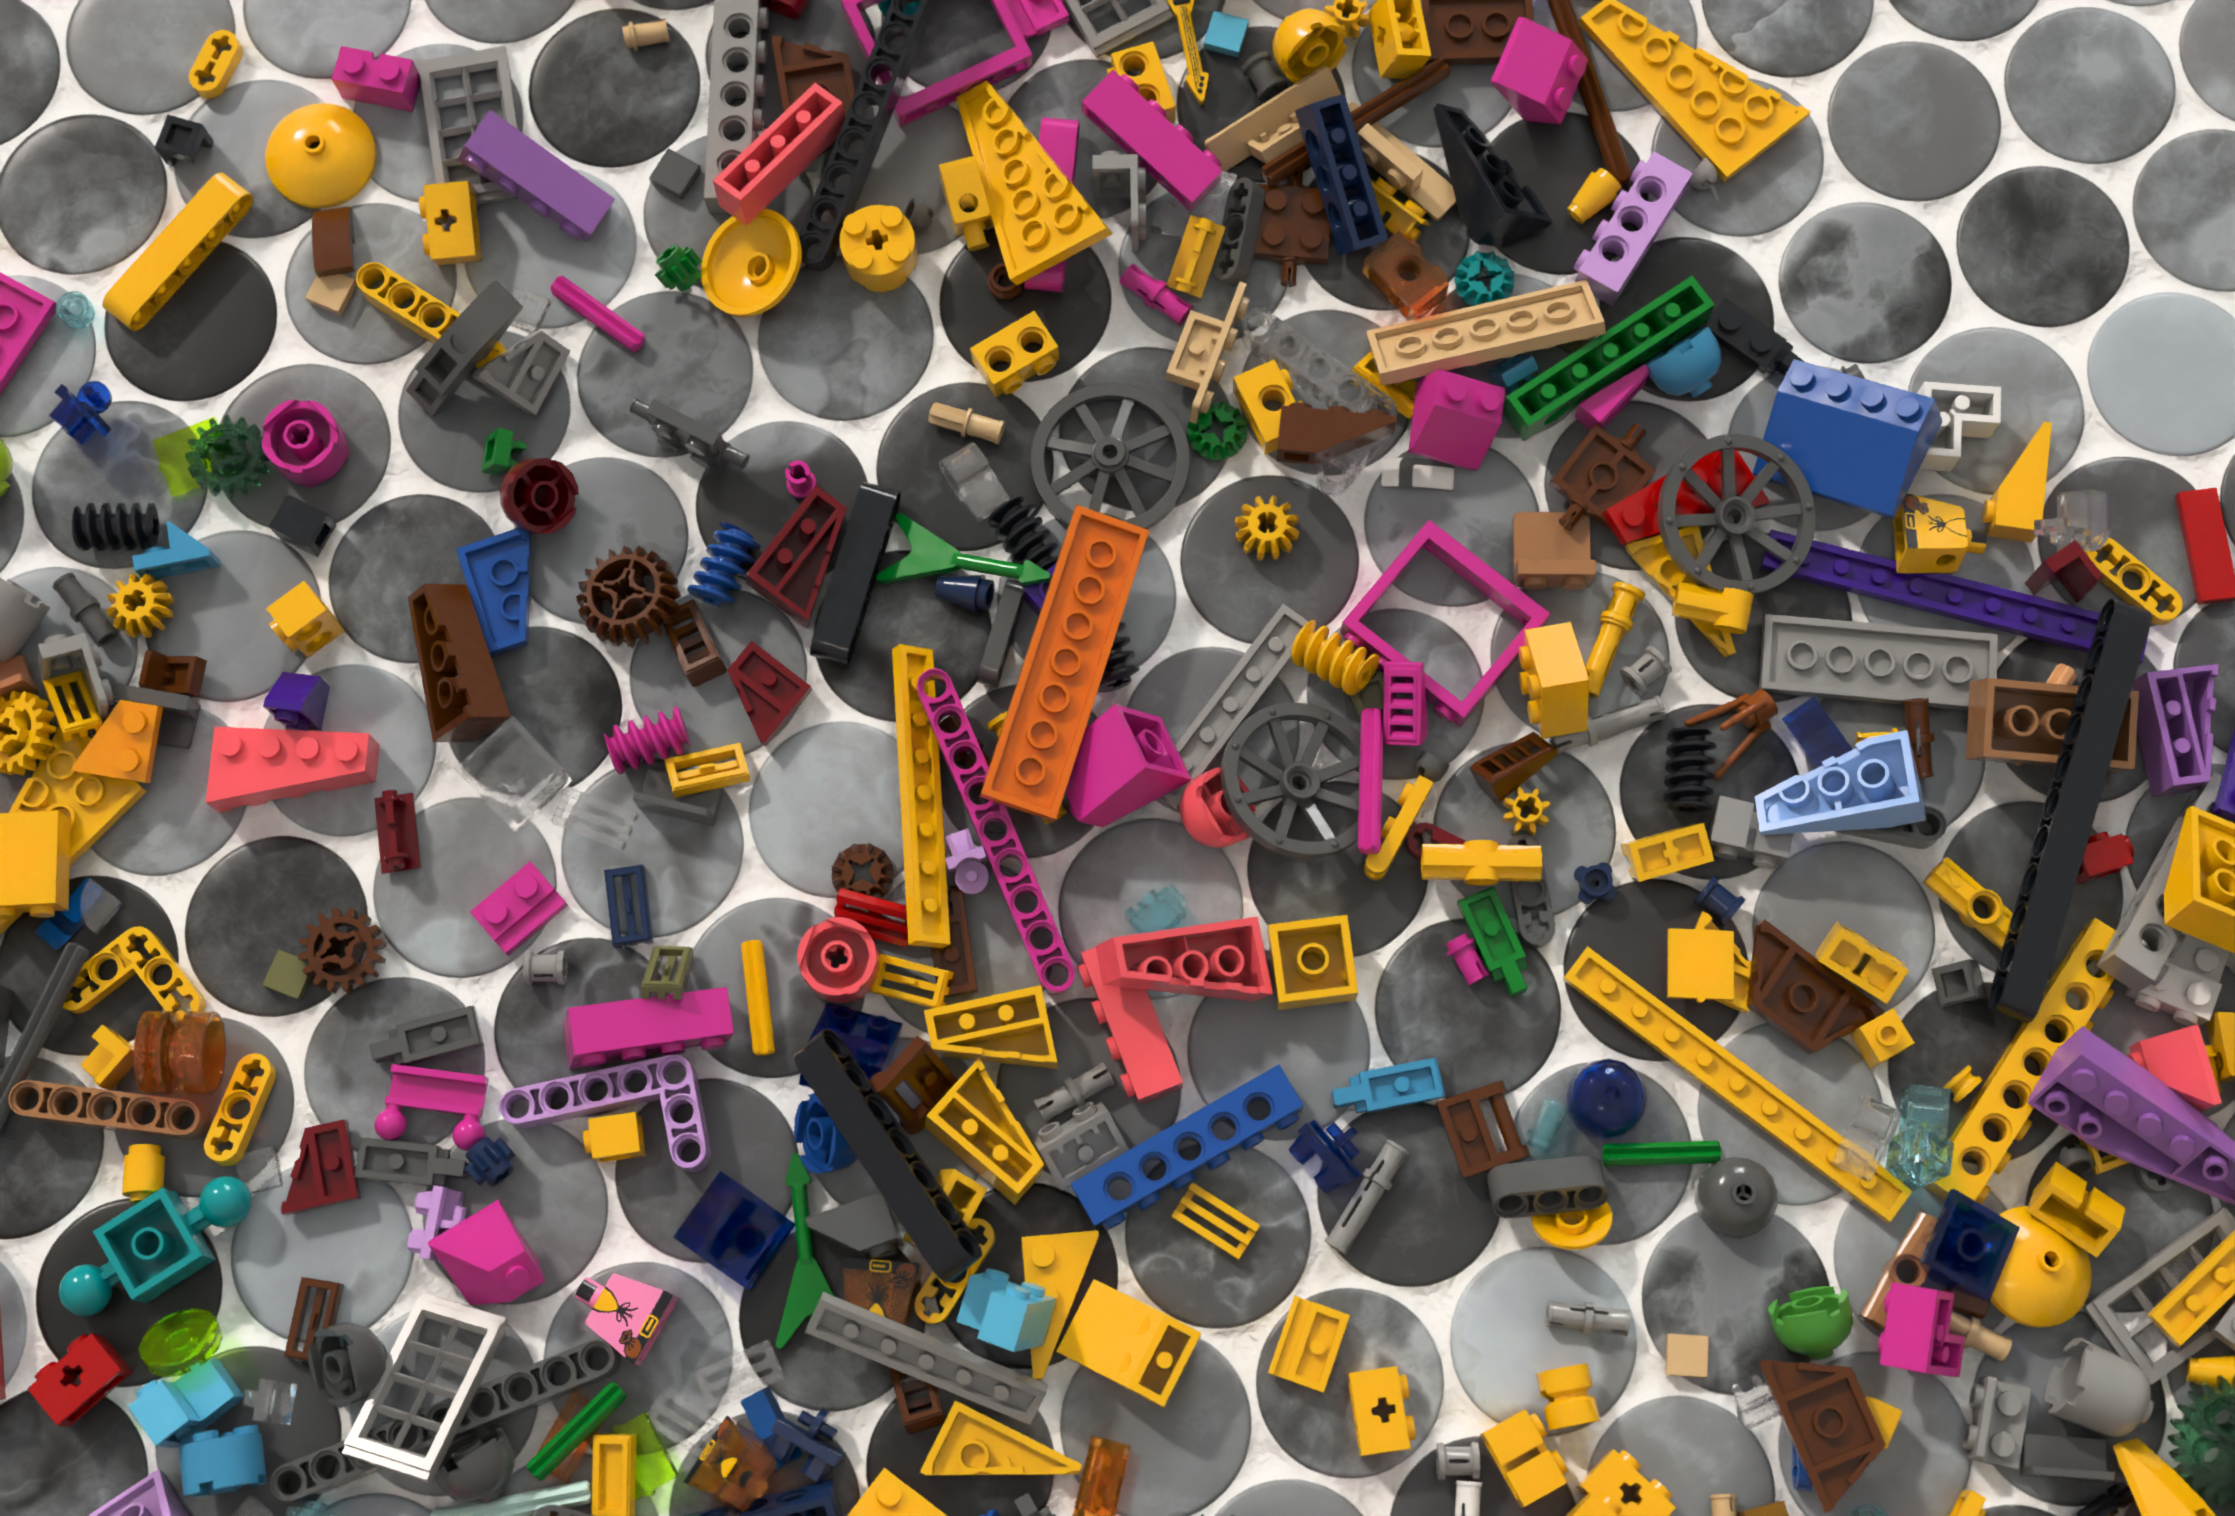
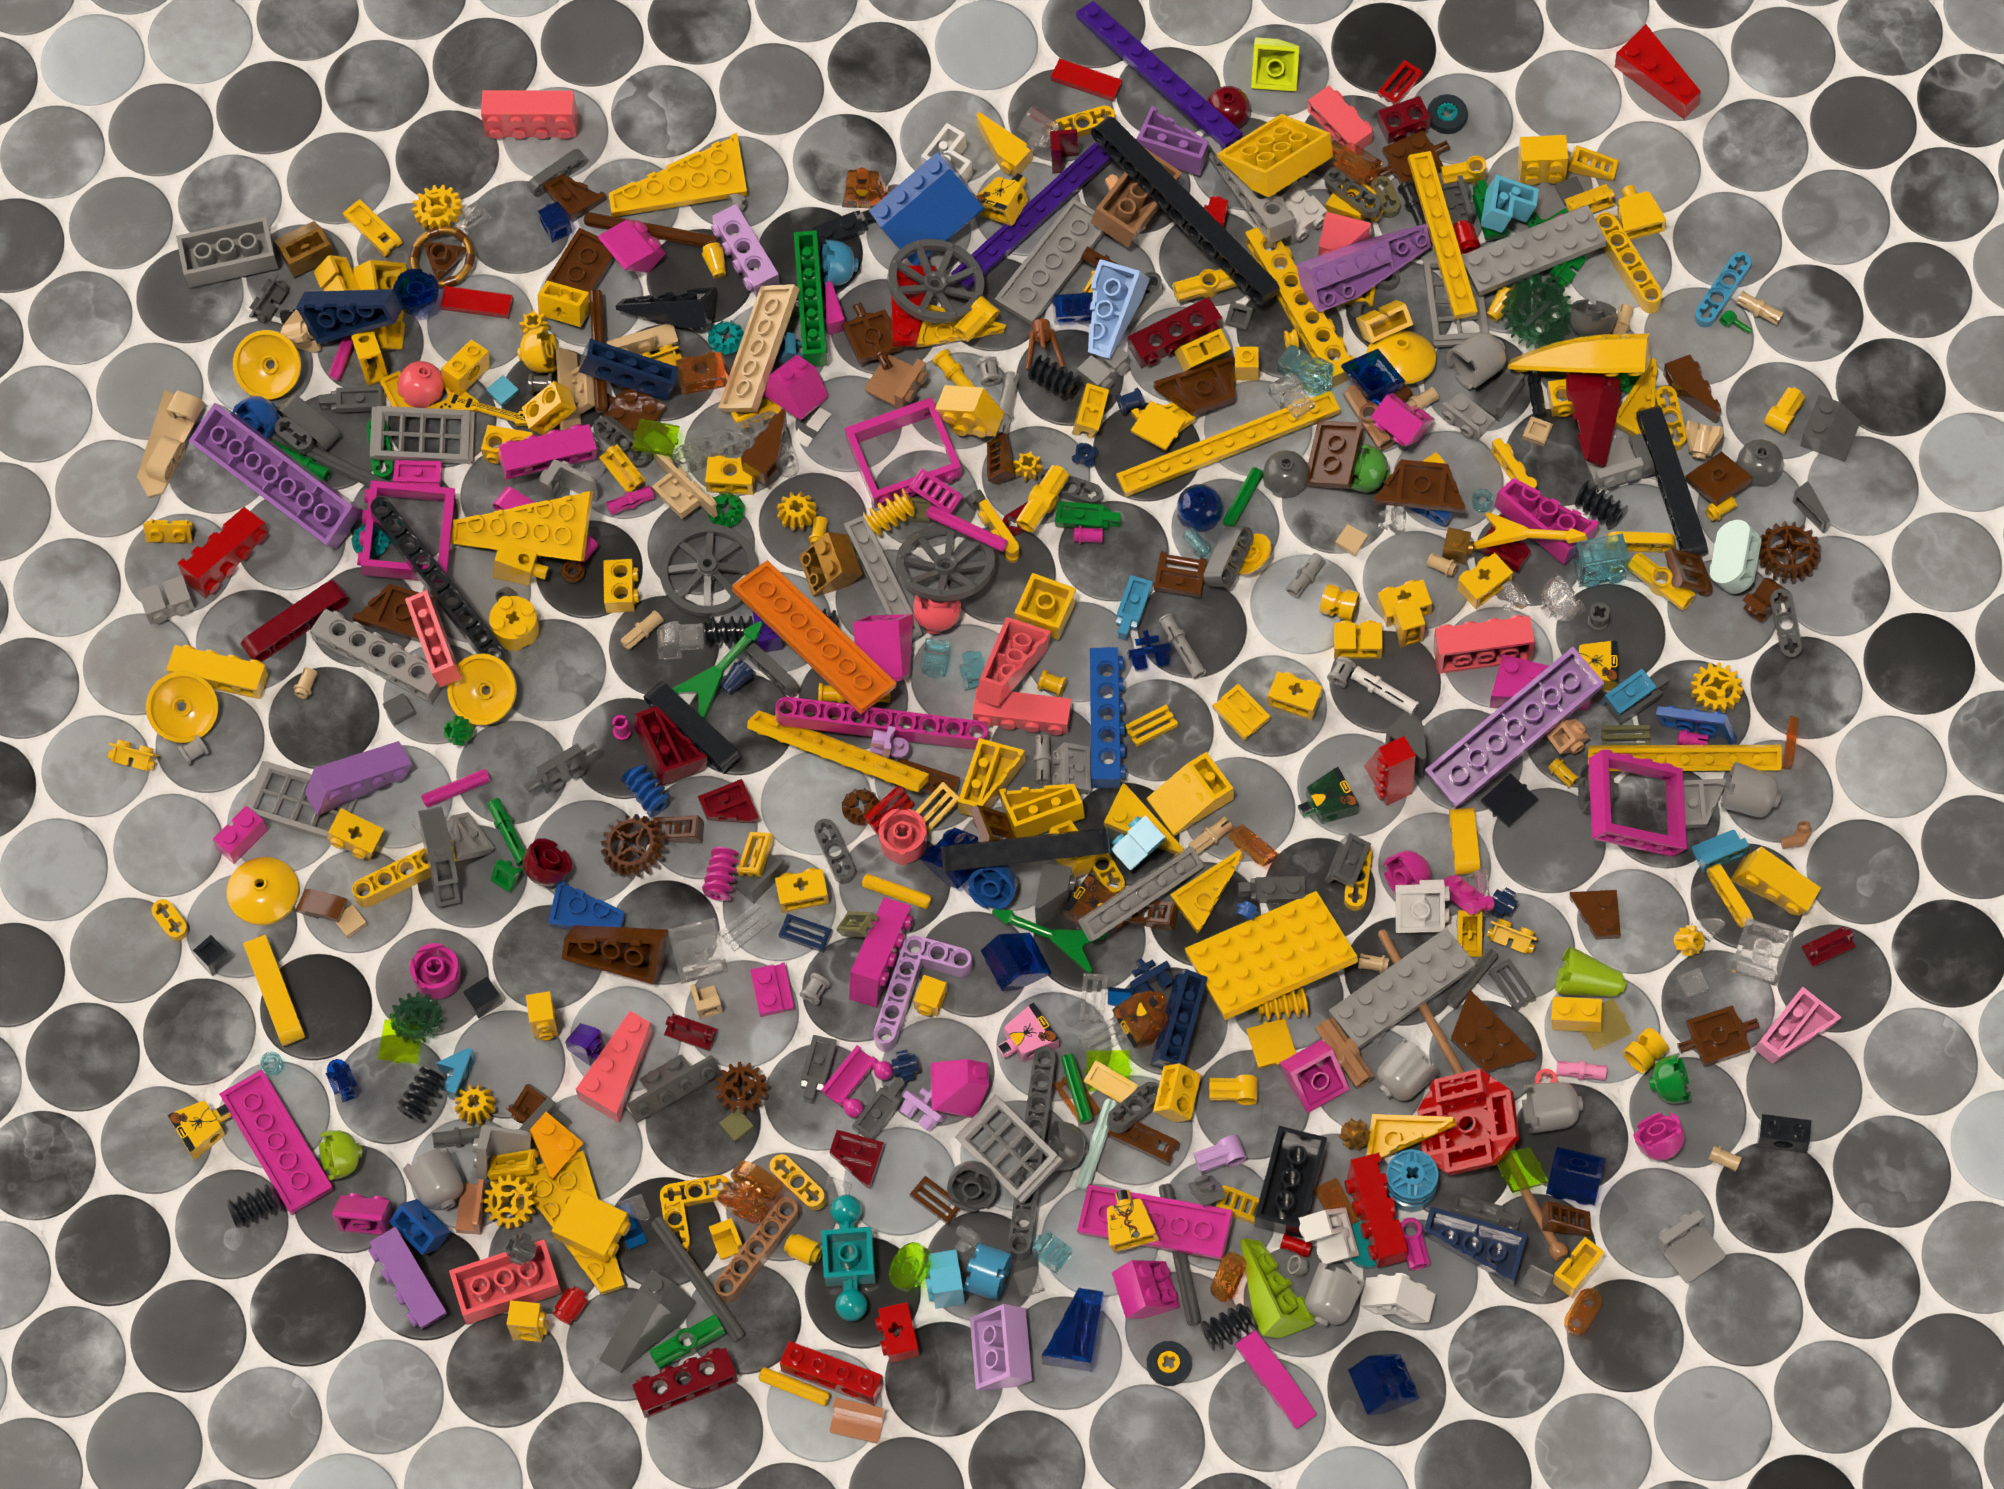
camera: 60 degrees left, 10 degrees down
(303, 847) = (671, 1083): none -> dark grey bracket
(453, 826) = (706, 1001): none -> tan panel
(576, 407) = (507, 830): none -> green pin
(695, 885) = (813, 894): none -> yellow brick
(748, 893) = (833, 861): none -> dark grey beam
(1083, 1407) = (1211, 835): none -> tan axle
(1145, 850) = (935, 657): none -> clear light blue brick
(1200, 1039) = (1052, 683): none -> yellow bush
(1211, 620) = (830, 564): none -> pearl gold slope
(1224, 106) = (549, 408): none -> yellow brick
(1253, 576) = (819, 529): none -> yellow pin
(1263, 272) = (656, 437): none -> clear neon green piece
(1810, 1254) = (1334, 454): none -> reddish brown plate
(1826, 330) = (863, 188): none -> clear orange torso
(1927, 926) = (1179, 322): none -> dark red brick

